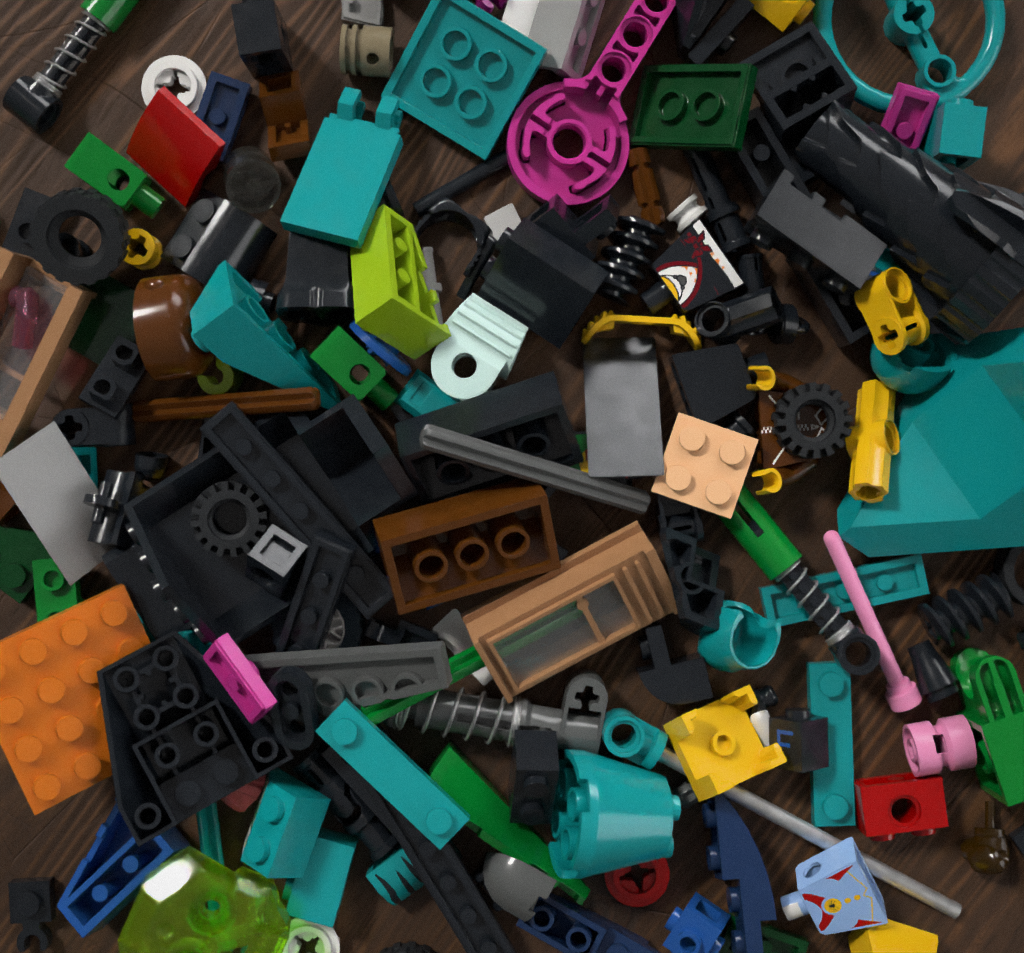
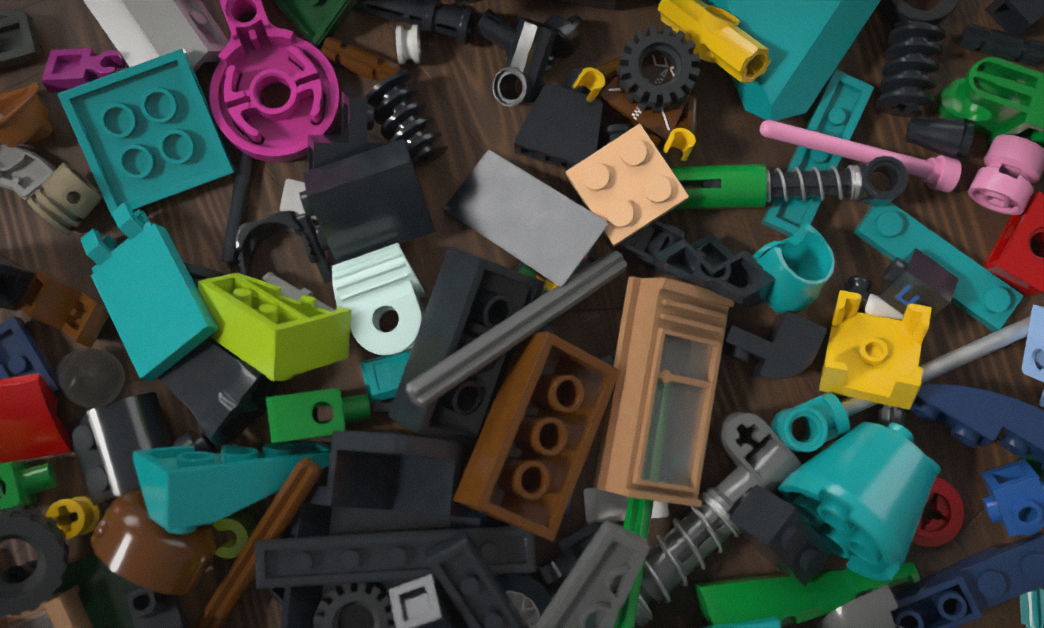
camera: 45 degrees left, 5 degrees down
(382, 349) = (317, 377): blue wheel -> none
(677, 326) = (493, 122): yellow piece -> none
(690, 273) = (459, 78): torso -> none

